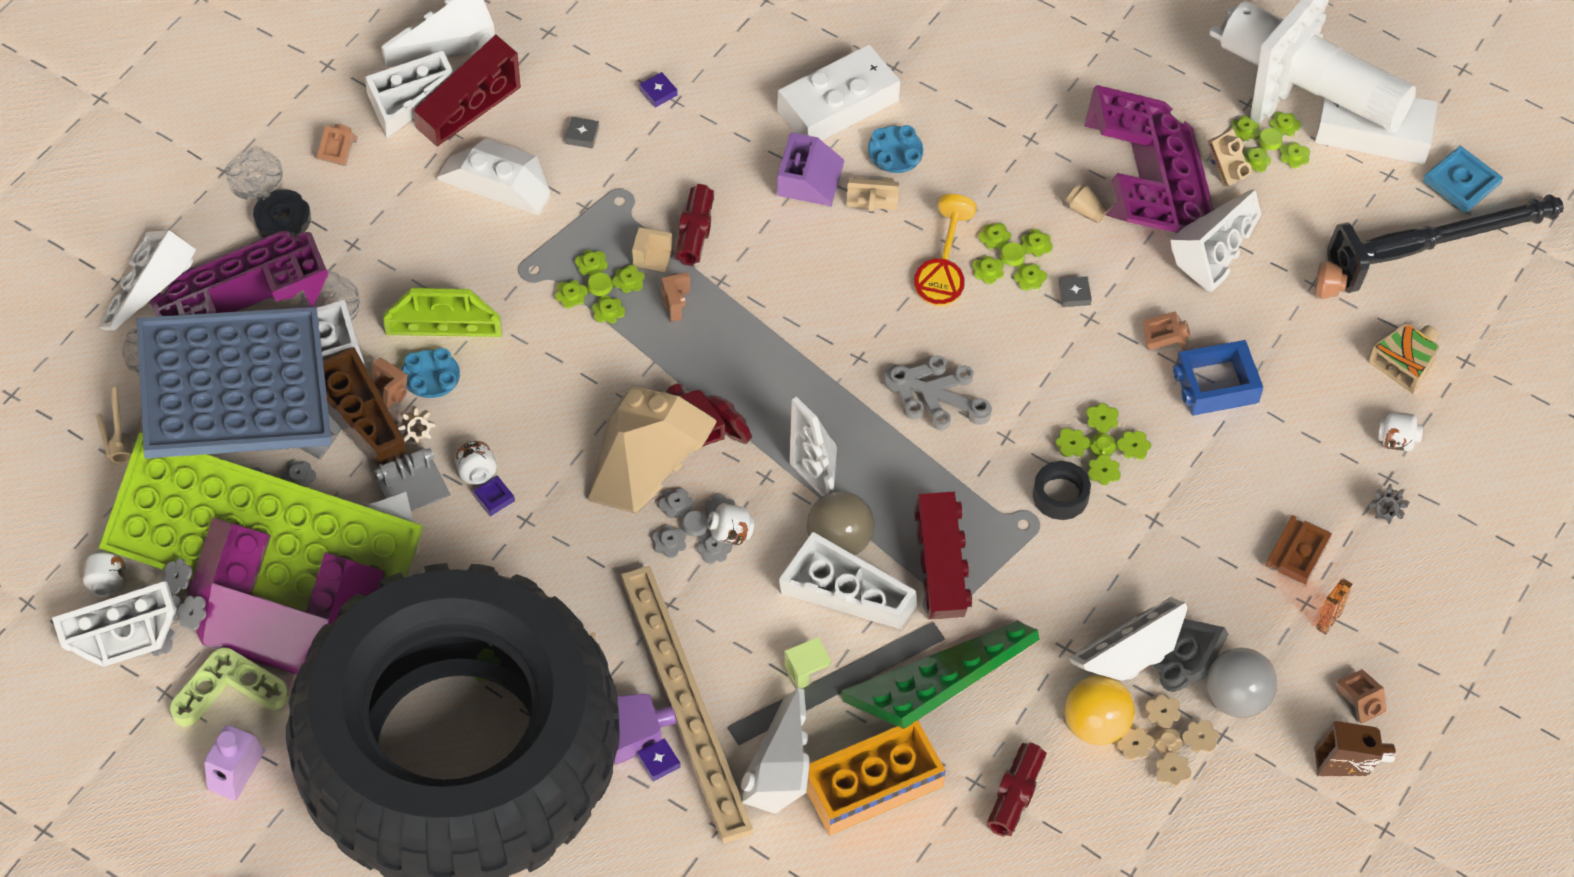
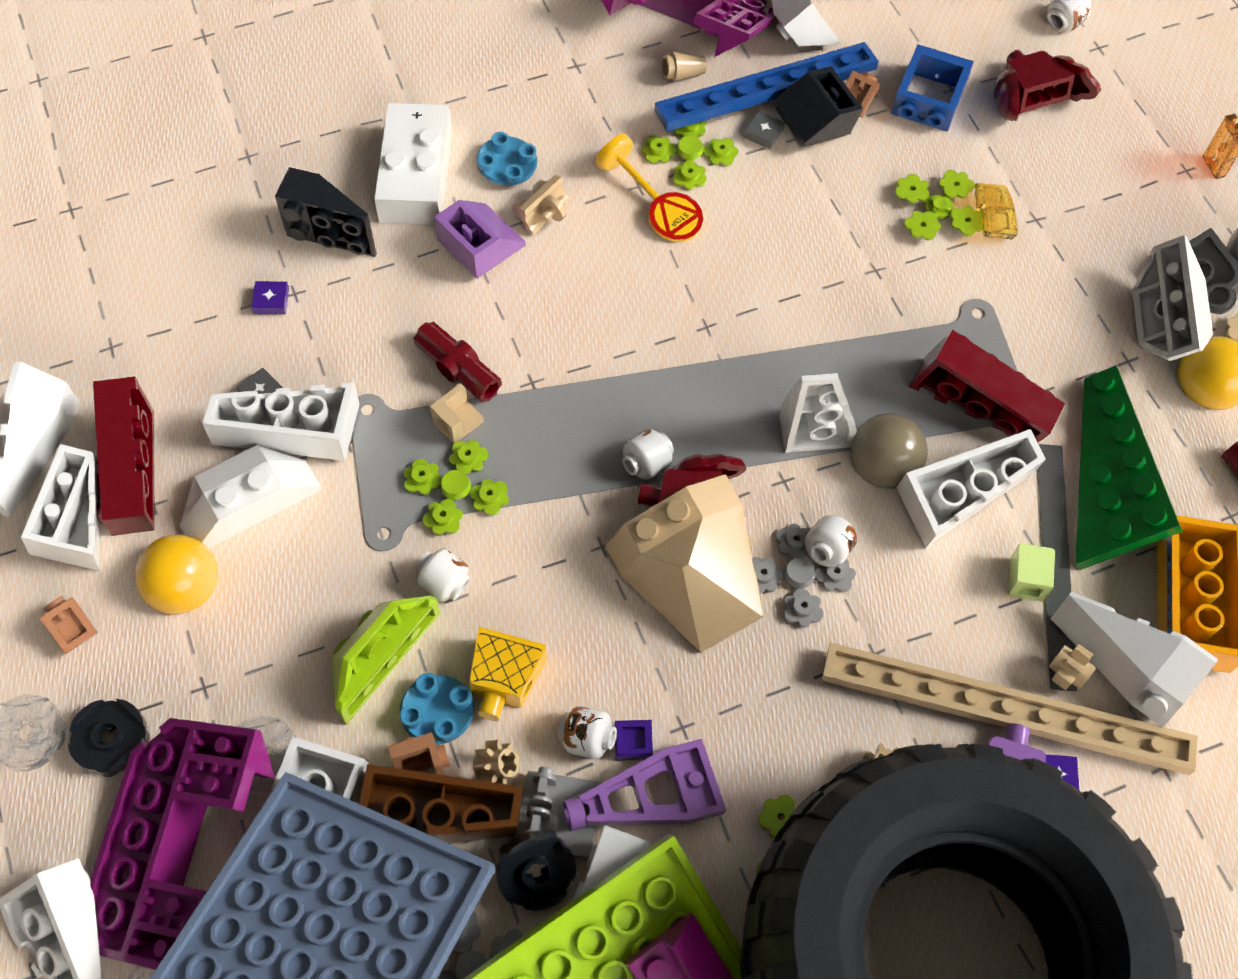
camera: 55 degrees left, 5 degrees up
(361, 468) = (530, 849): none -> black plate
(413, 176) = (176, 574): none -> yellow piece
(483, 392) = (504, 670): none -> yellow torso
(485, 545) = (692, 778): none -> medium lavender plate
(525, 317) = (442, 574): none -> white head
(569, 165) = (285, 421): none -> white wedge
(673, 293) = (526, 430): nougat bracket -> none
(711, 376) = (647, 454): none -> white head
(739, 65) = (322, 214): none -> black slope
(746, 722) = (1072, 667): none -> tan gear
(934, 391) = (795, 292): light grey plant -> none
(1058, 509) = (974, 243): black tyre -> none
(1115, 267) = (758, 87): none -> blue plate
(1117, 309) = (818, 107): none -> black slope
(1129, 483) = (997, 211): none -> clear yellow slope
(1289, 444) = (1040, 81): none -> dark red torso
(1299, 549) = (1139, 140): dark orange plate -> none
(1387, 496) = (1137, 56): gear -> none

